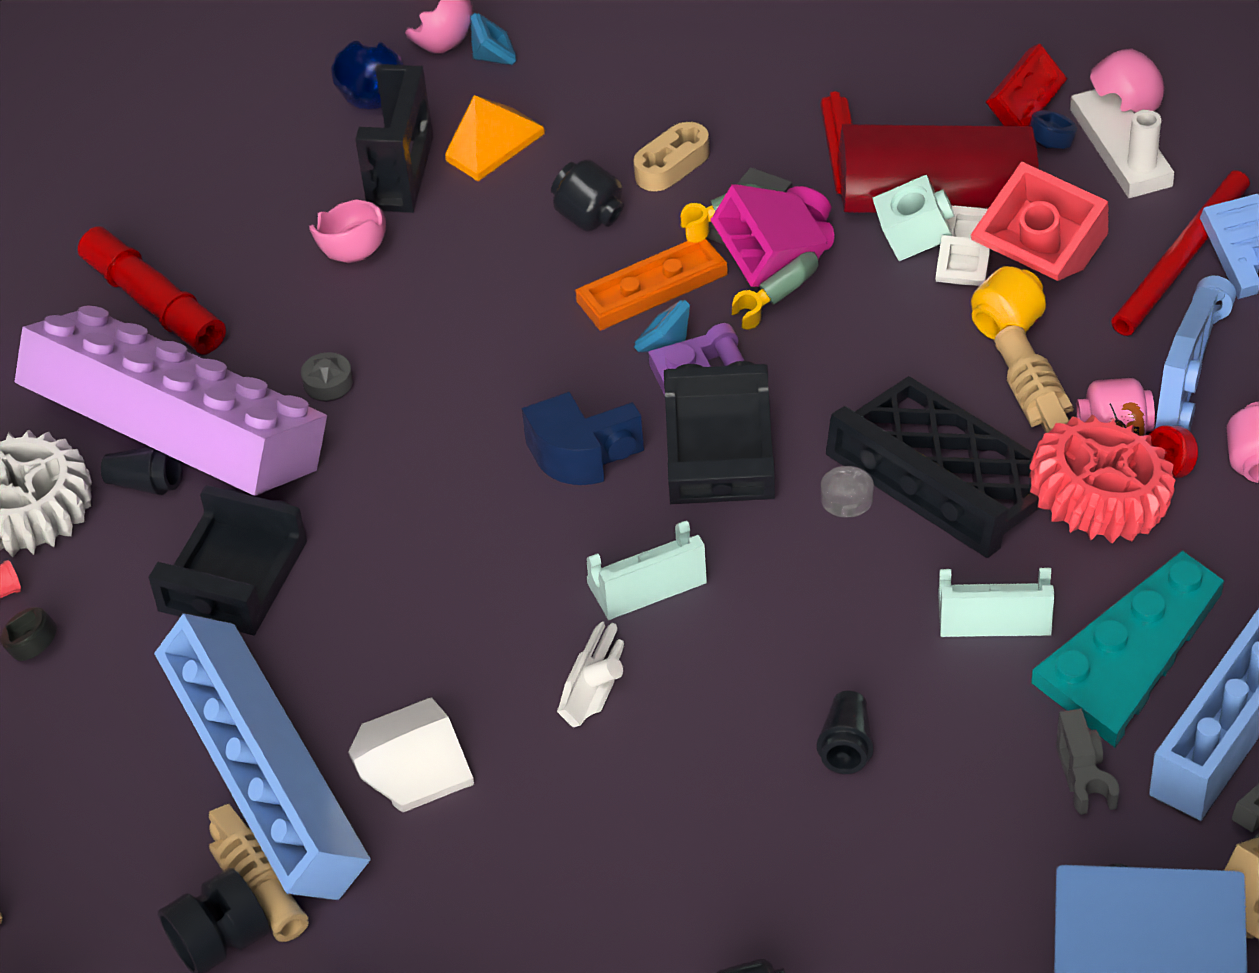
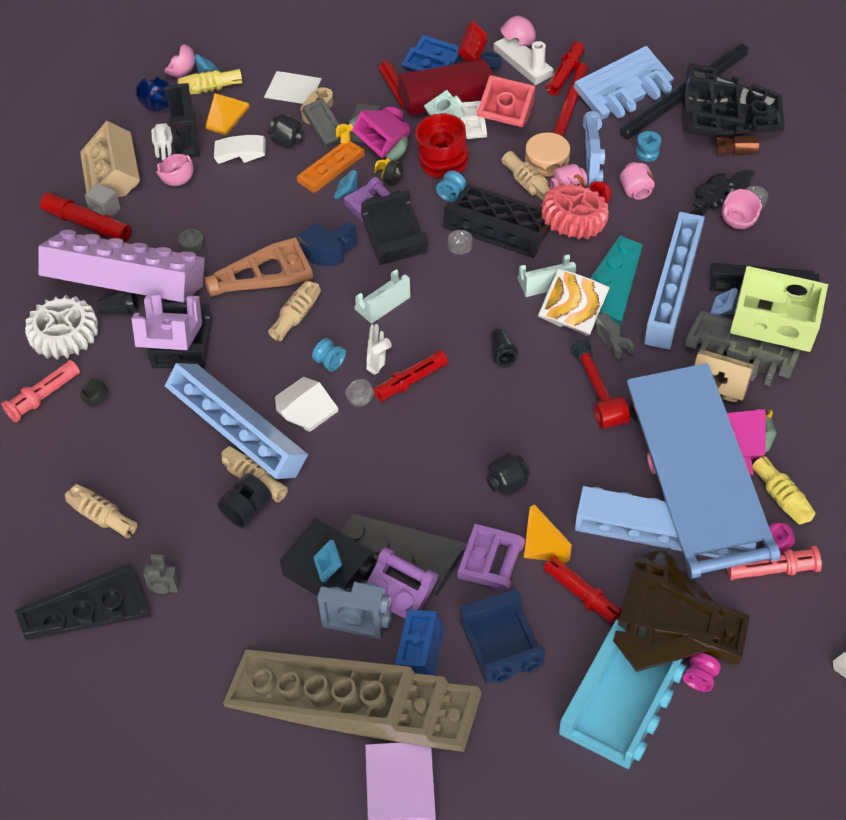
camera: 20 degrees left, 5 degrees up
(193, 263) = (102, 200): none -> light grey plate
(199, 540) = (166, 329): none -> lavender panel
(235, 194) = (110, 160): none -> tan slope
(347, 170) = (162, 139): none -> white piece
(466, 557) = (295, 309): none -> tan hinge
(482, 69) = (211, 80): none -> light yellow hinge
(493, 664) = (328, 354): none -> dark azure wheel
(496, 210) = (246, 146): none -> white slope
(497, 463) = (287, 253): none -> nougat plate
(525, 756) = (359, 392): none -> clear tile
(625, 750) = (410, 376): none -> red pin
(639, 110) = (292, 87): none -> white sticker
(664, 190) = (322, 122): none -> dark grey plate
(764, 321) = (393, 172): none -> pearl dark grey tile
(869, 372) = (451, 186): none -> dark azure wheel
(877, 287) = (442, 144): none -> red wheel
(934, 96) = (431, 54): none -> blue slope
(1006, 300) = (502, 140): yellow head -> none
(1017, 922) = (609, 411): none -> red piece
(1025, 670) = (573, 301): none -> slope
(1093, 344) = (547, 152): none -> light nougat head
(1211, 165) = (568, 63): none -> red pin

